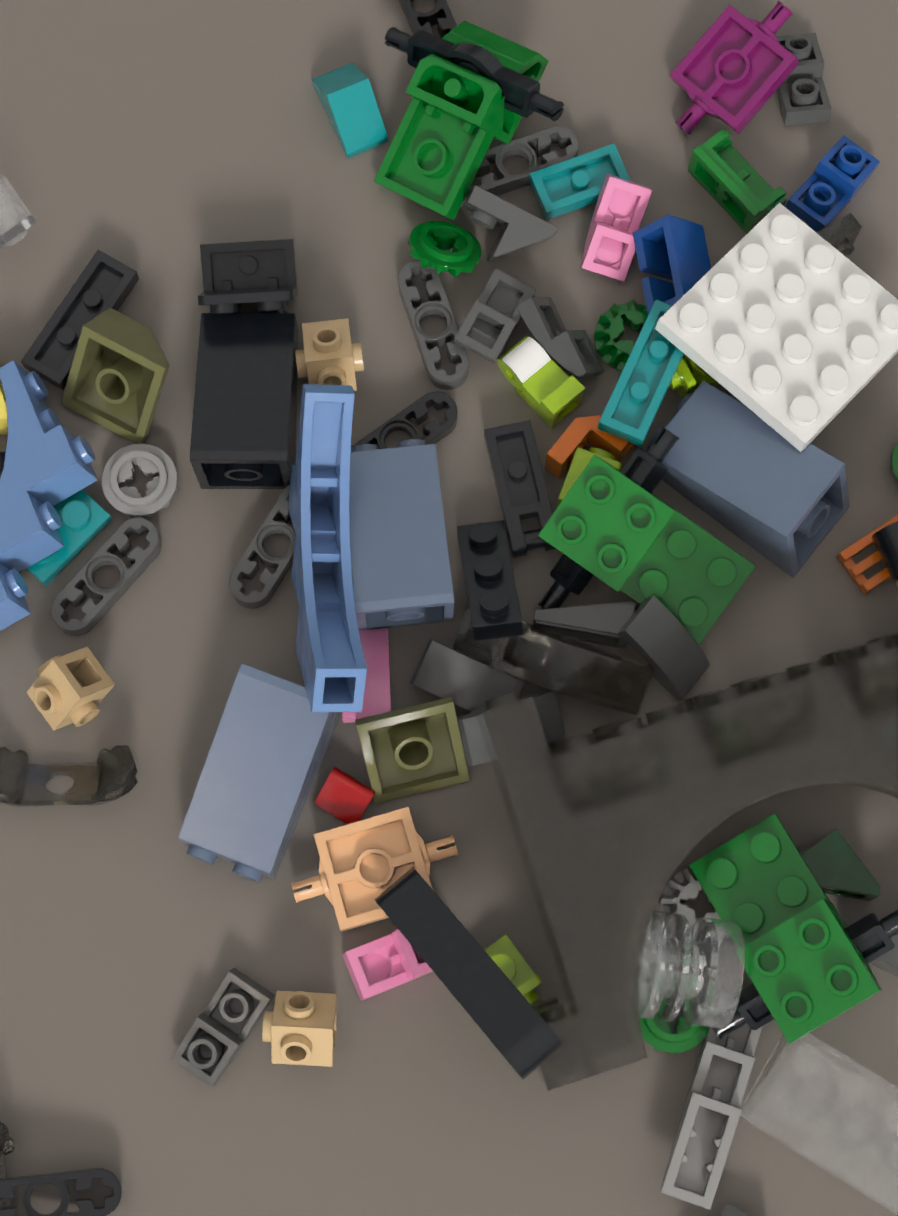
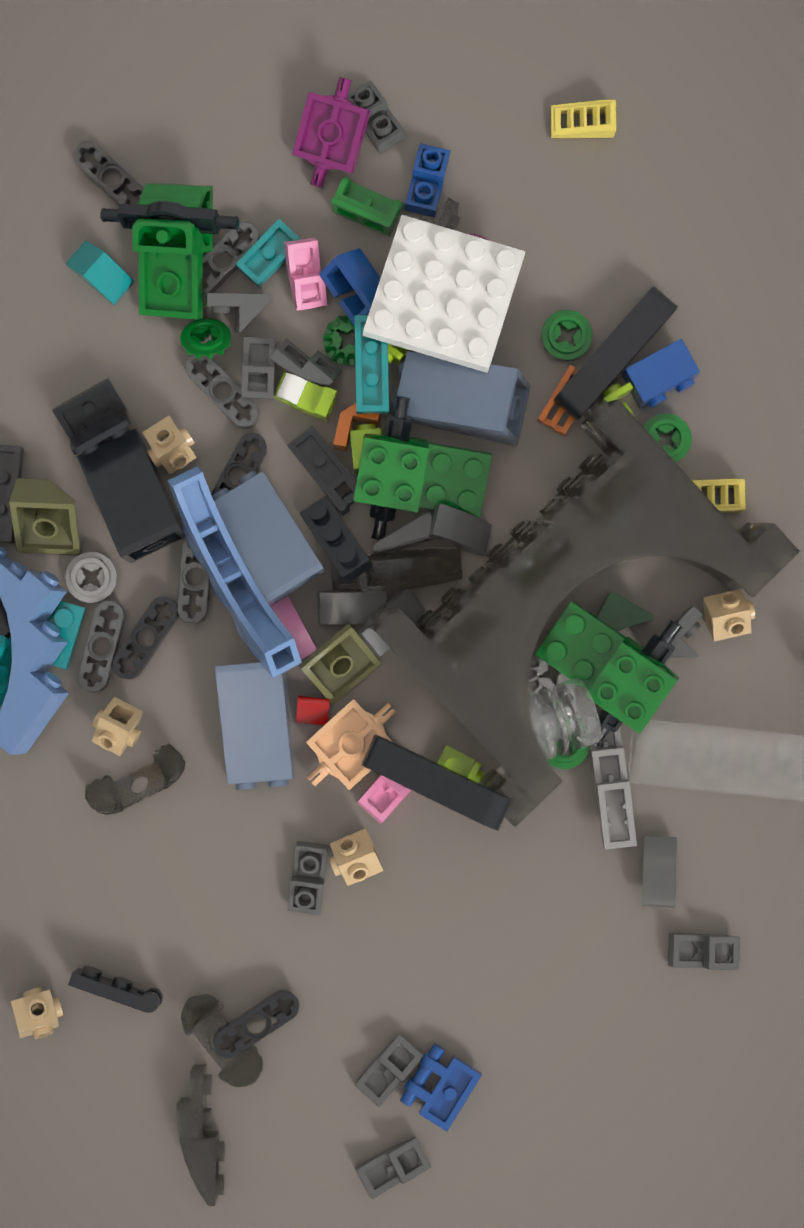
camera: 25 degrees left, 10 degrees up
(174, 573) = (132, 638): none -> black beam

